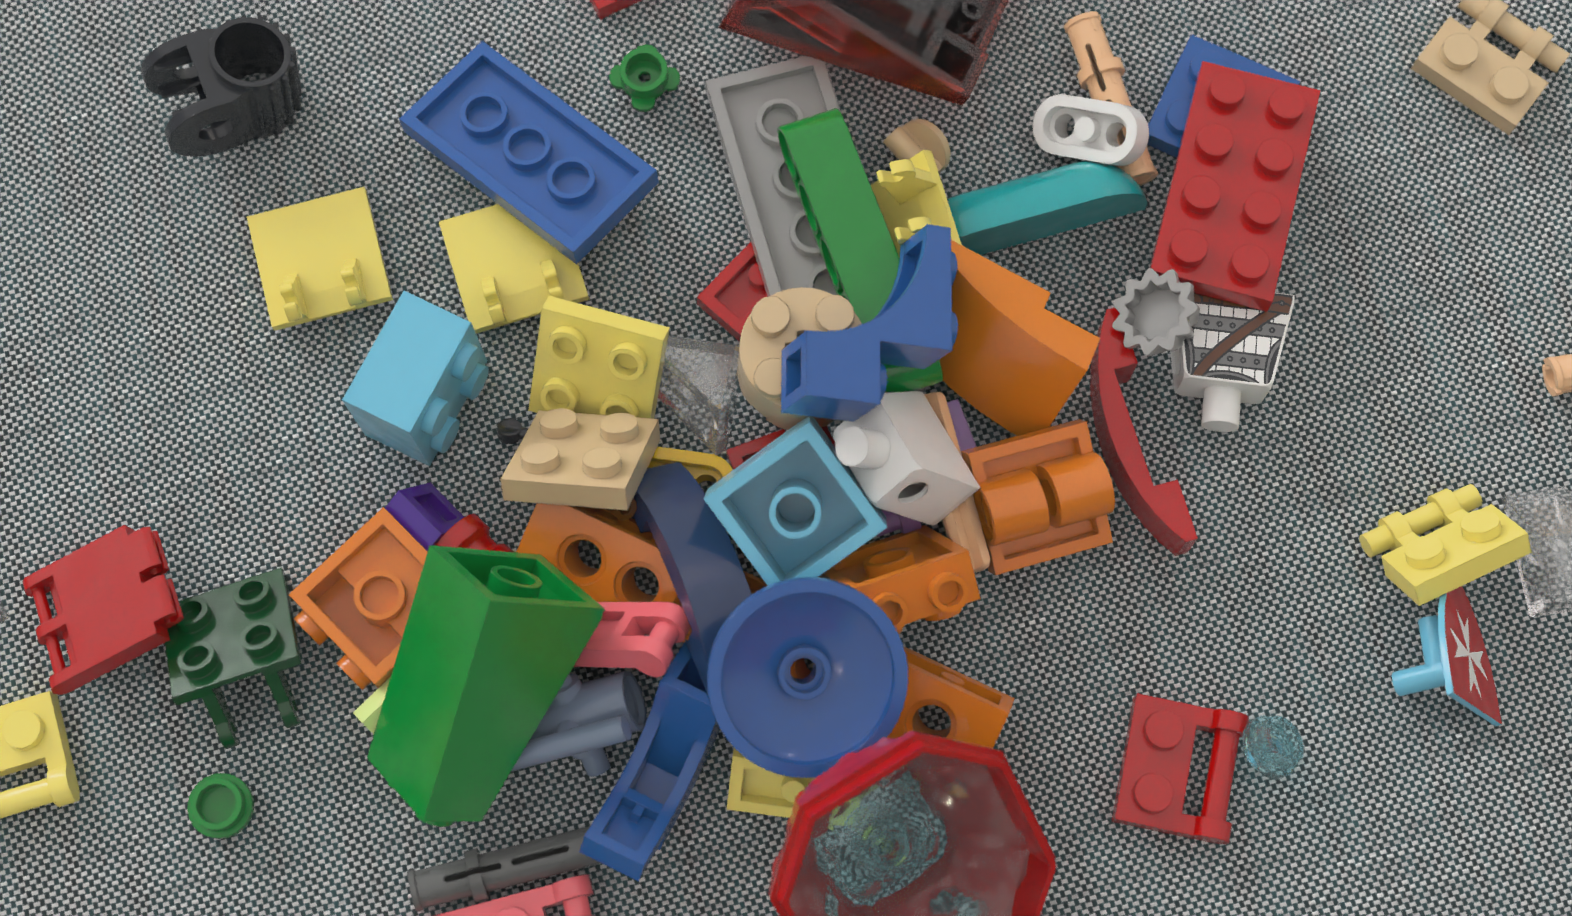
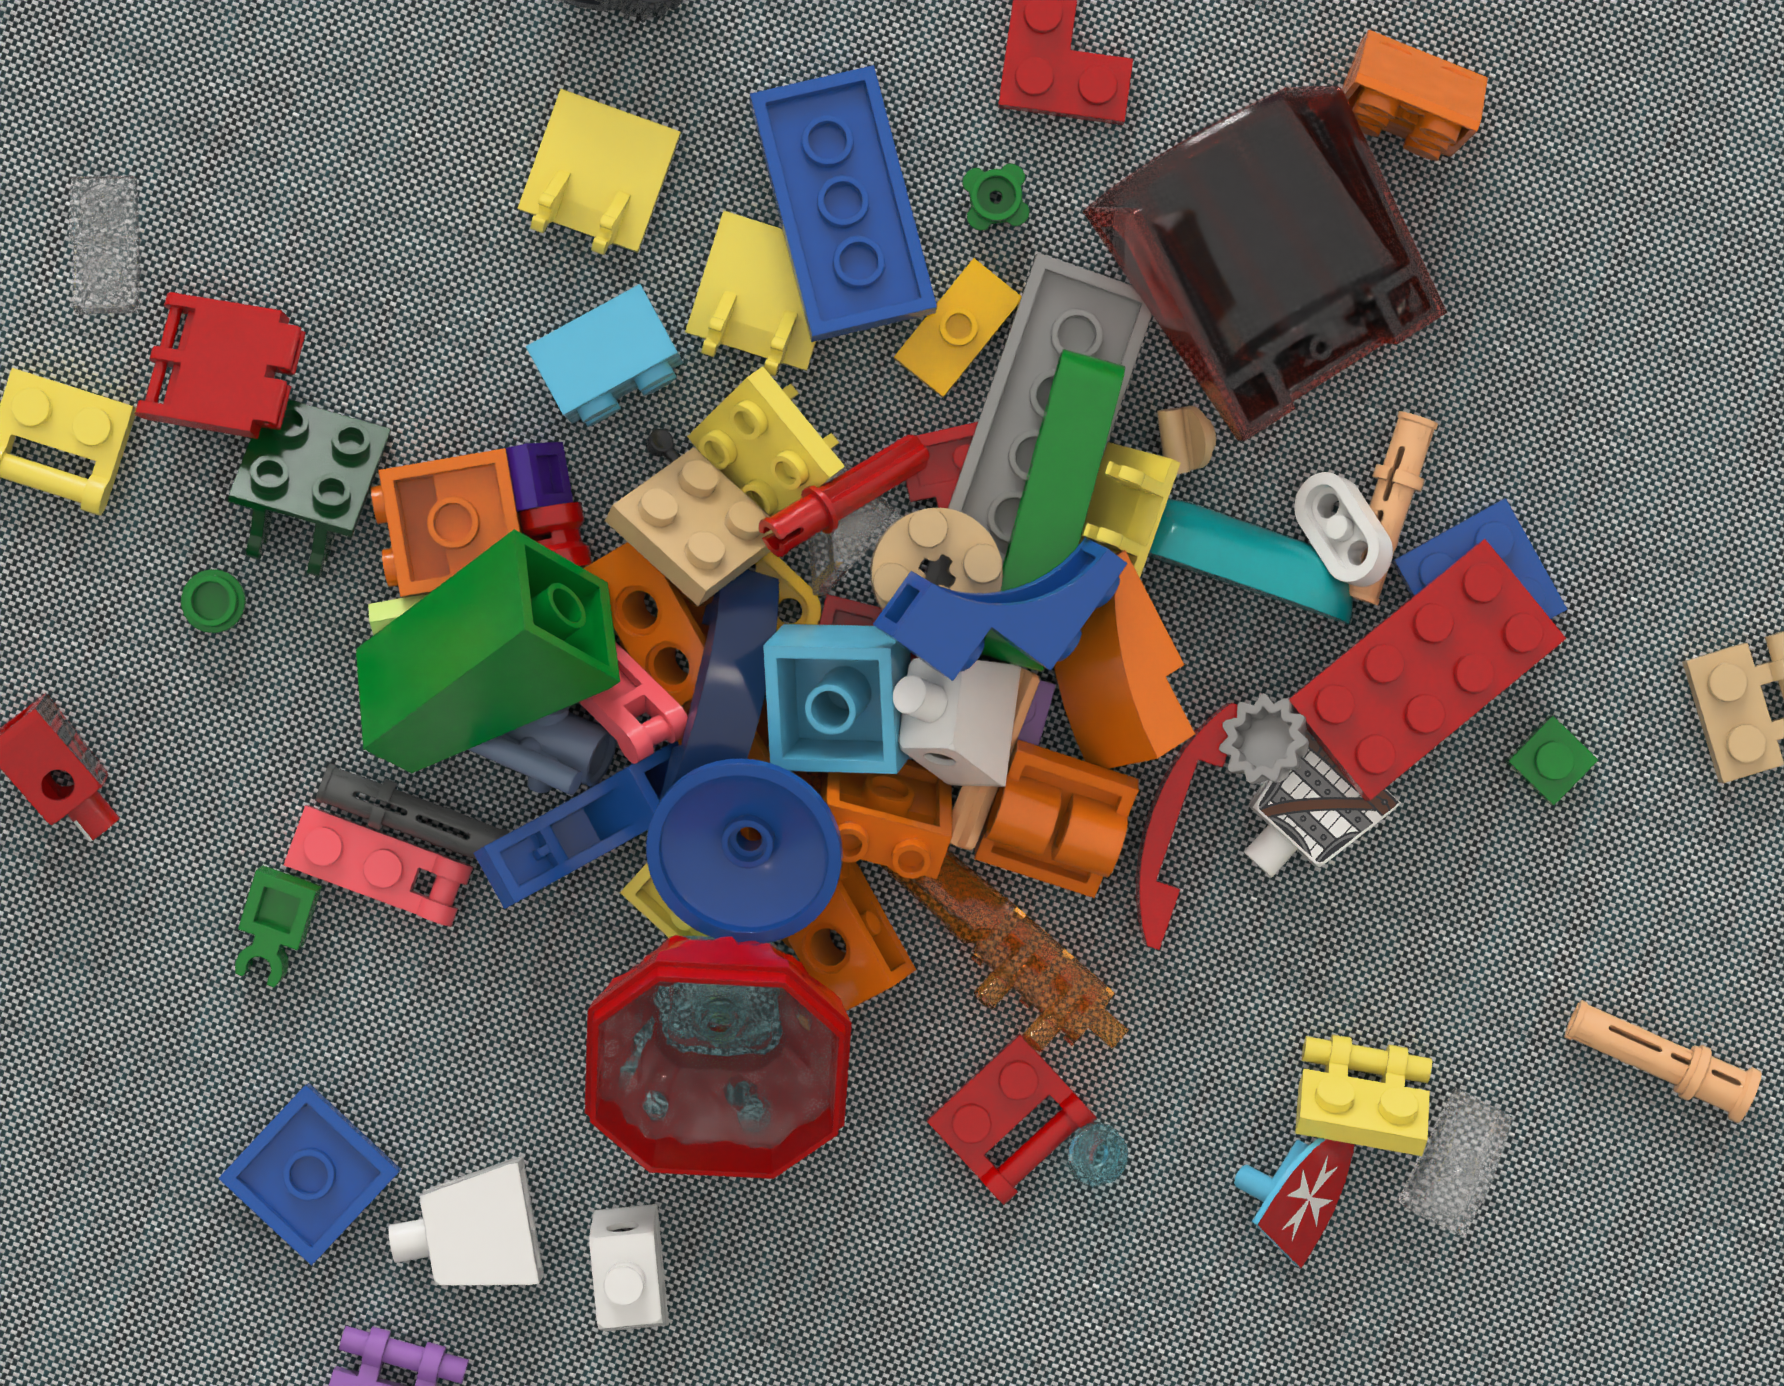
camera: 35 degrees right, 15 degrees up
(675, 368) = (824, 506): none -> red axle
(685, 190) = (959, 329): none -> yellow plate
(1079, 624) = (1017, 953): none -> clear orange piece
(1376, 200) = (1551, 760): none -> green plate

